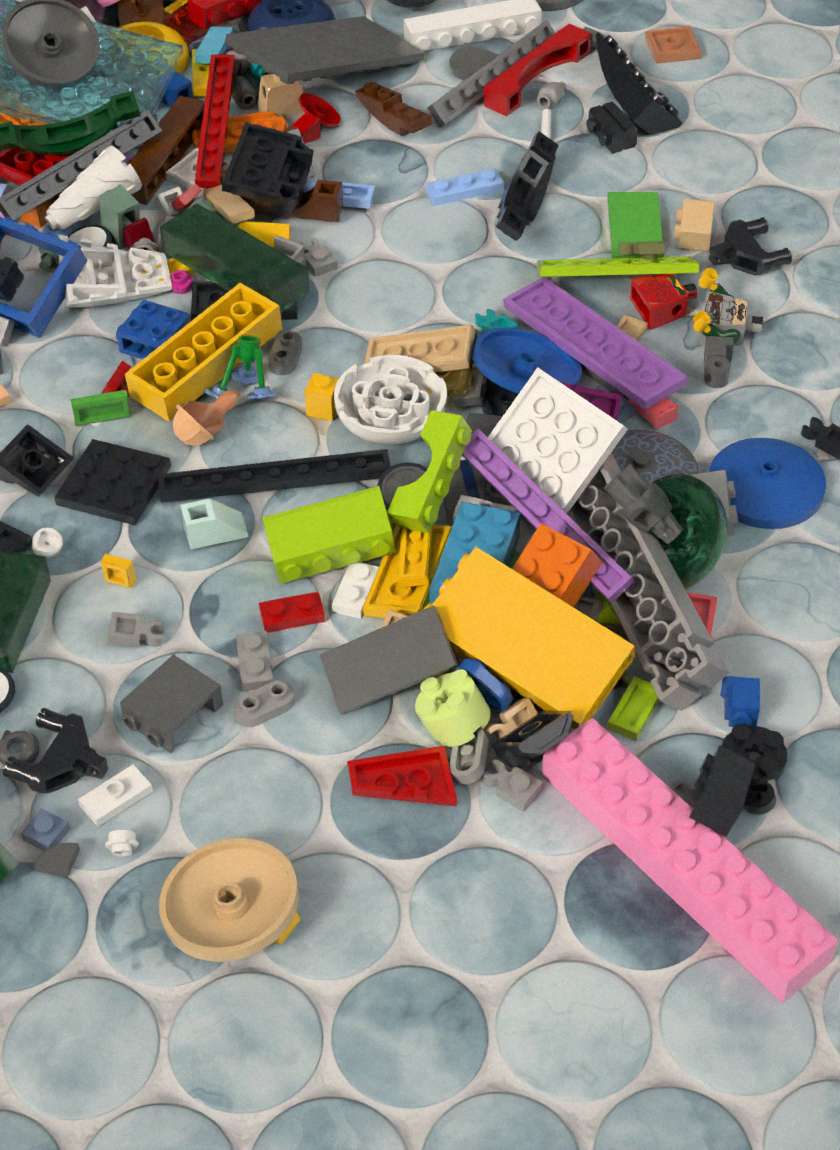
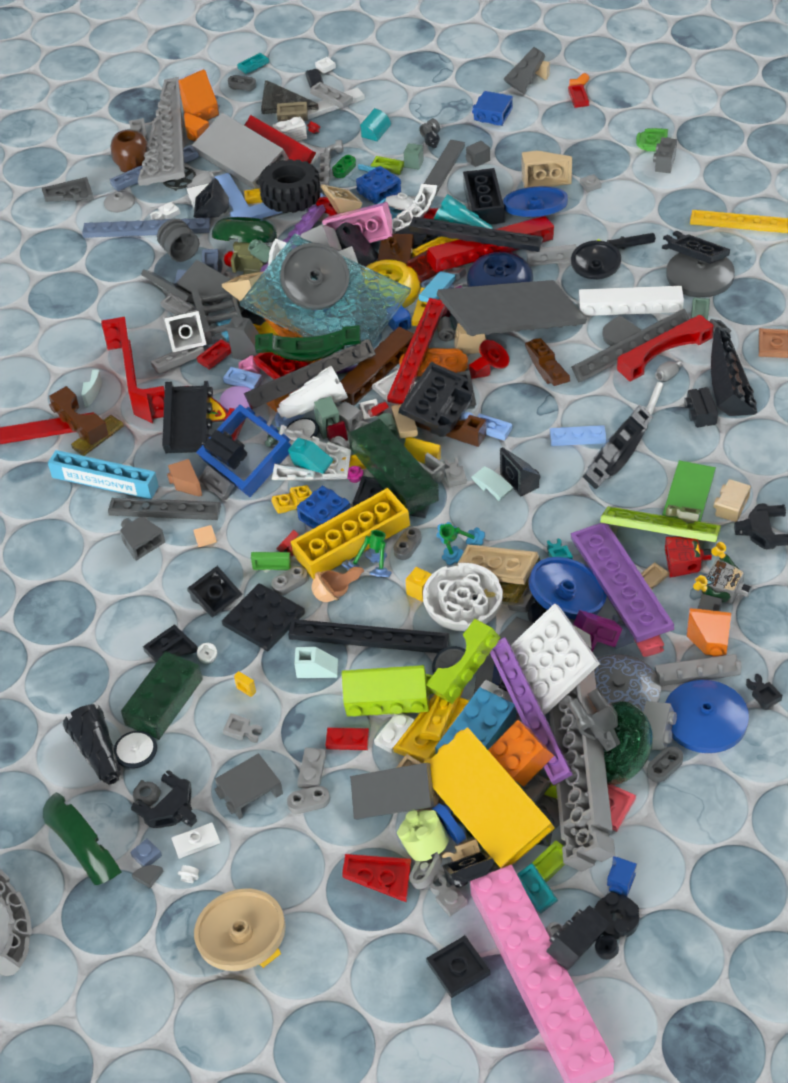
camera: 20 degrees right, 0 degrees up
(103, 330) = (290, 501): none -> yellow slope
(113, 265) = (309, 456): none -> teal slope
(135, 428) = (291, 580): none -> light grey plate
(153, 211) = (350, 415): none -> light grey brick
(345, 323) = (449, 533): none -> plant
(380, 260) = (492, 482): none -> light aqua slope
(405, 240) = (518, 473): none -> black slope
(560, 18) = (701, 307): none -> sand green tile
(564, 873) = (458, 966): none -> black plate
(636, 741) = (537, 888): none -> teal plate
(733, 377) = (709, 631): none -> orange slope
(734, 428) = (698, 669): none -> light grey hinge
(740, 550) = (663, 765): none -> dark grey plate

